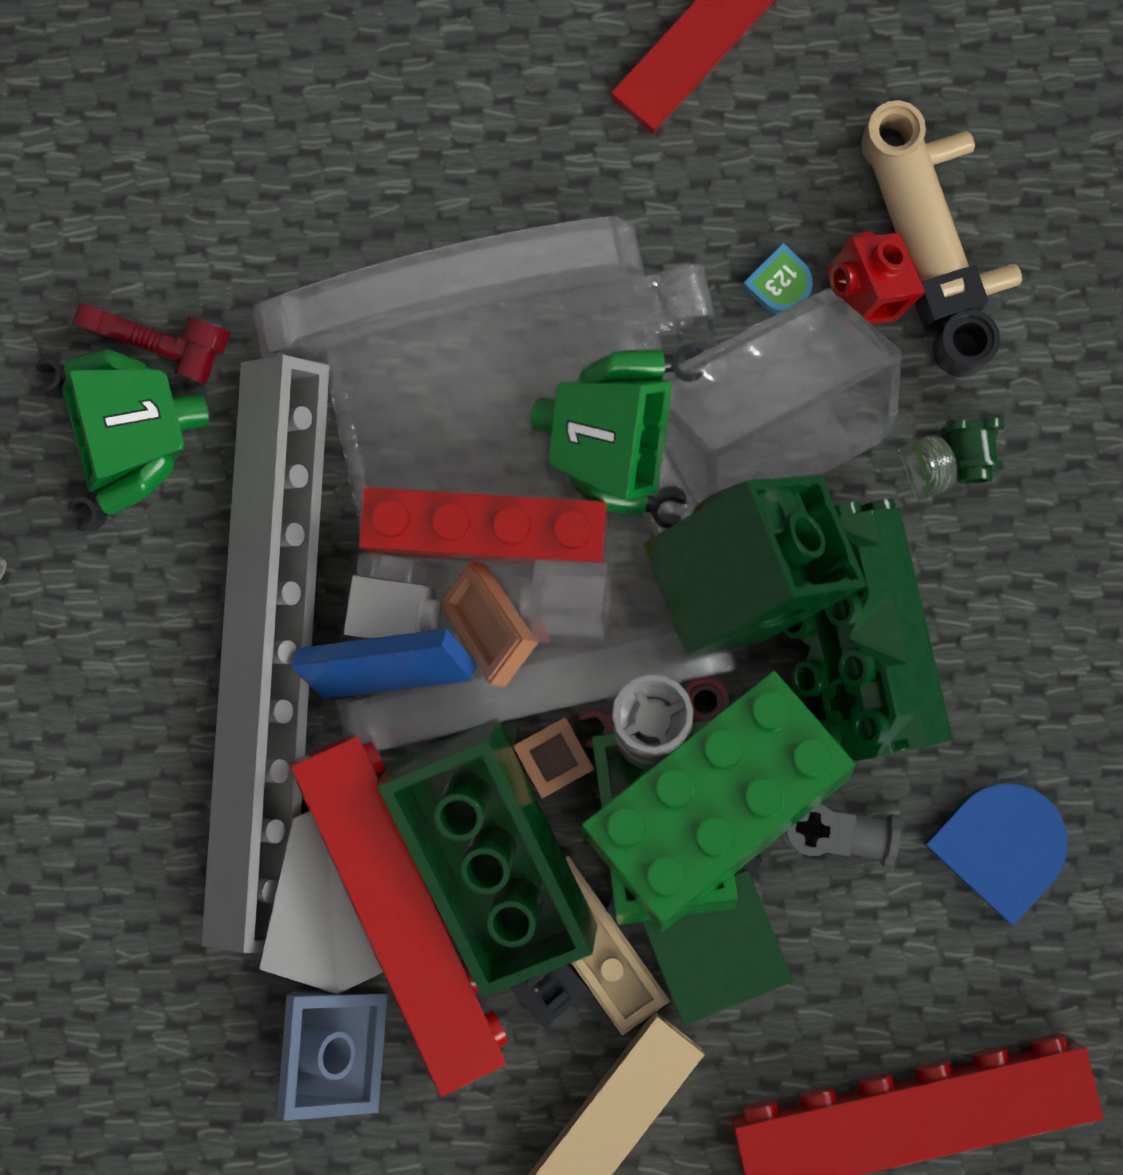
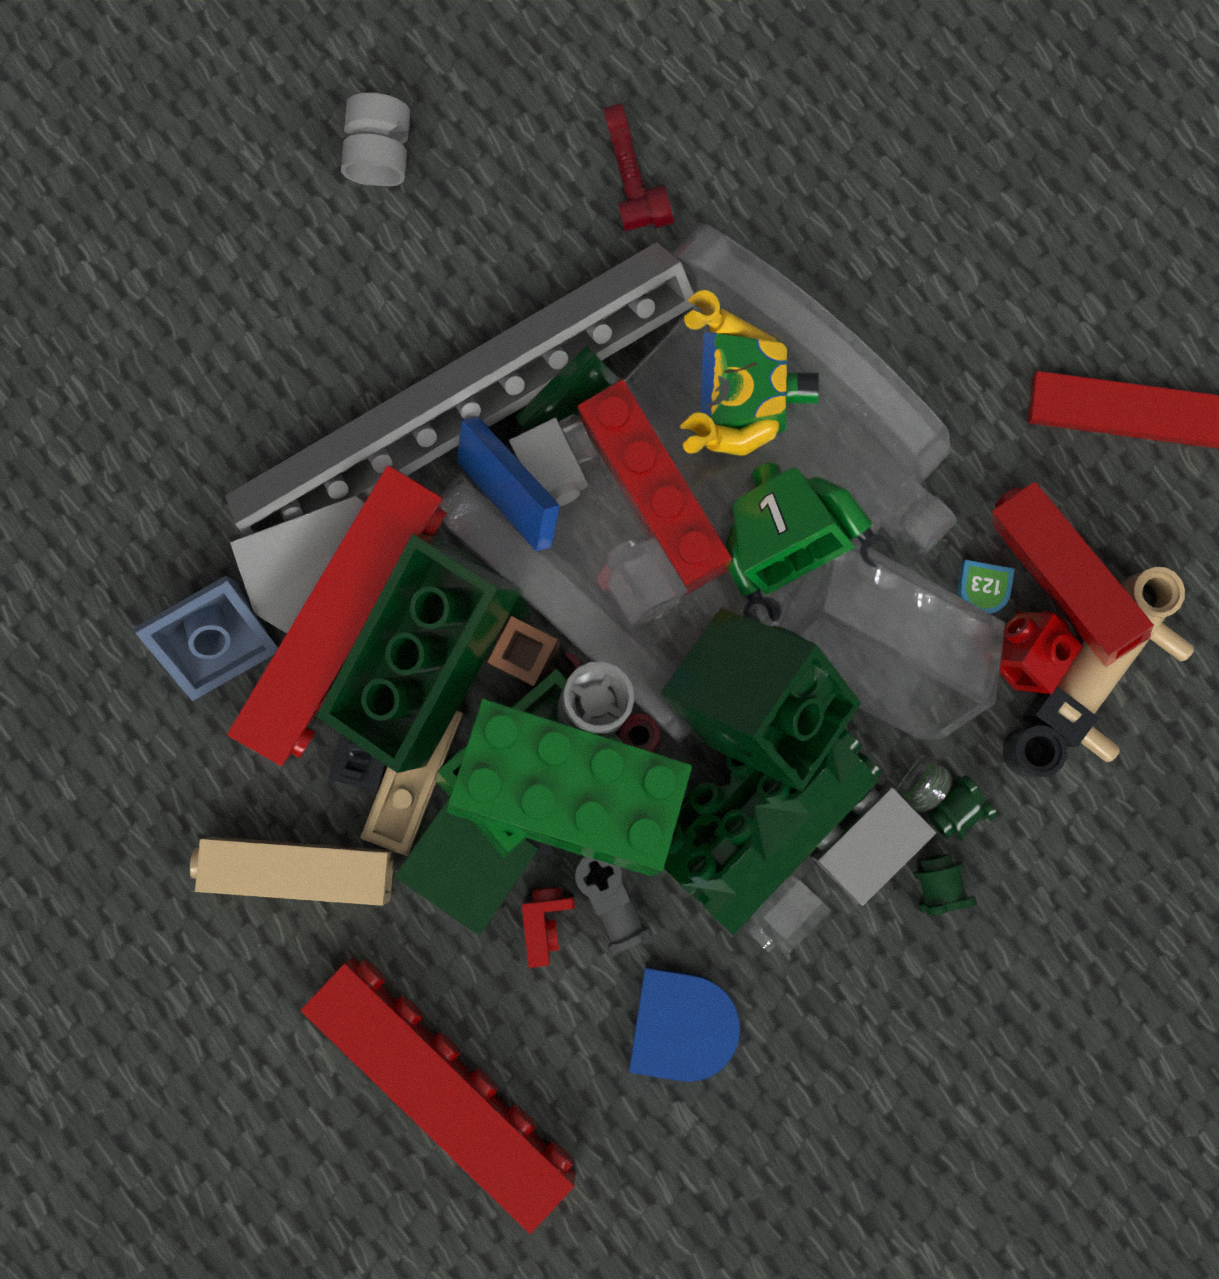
camera: 55 degrees right, 0 degrees up
(122, 427) = (553, 192): green torso -> none
(333, 545) = (574, 384): none -> dark green tile
(442, 377) = (742, 383): none -> torso
(488, 624) = (585, 537): nougat tile -> none
(824, 197) = (1071, 573): none -> red brick
(829, 920) = (540, 933): none -> red bracket
(953, 552) = (873, 844): none -> light grey brick
(968, 677) = (787, 916): none -> clear brick
(1033, 514) = (942, 885): none -> dark green brick

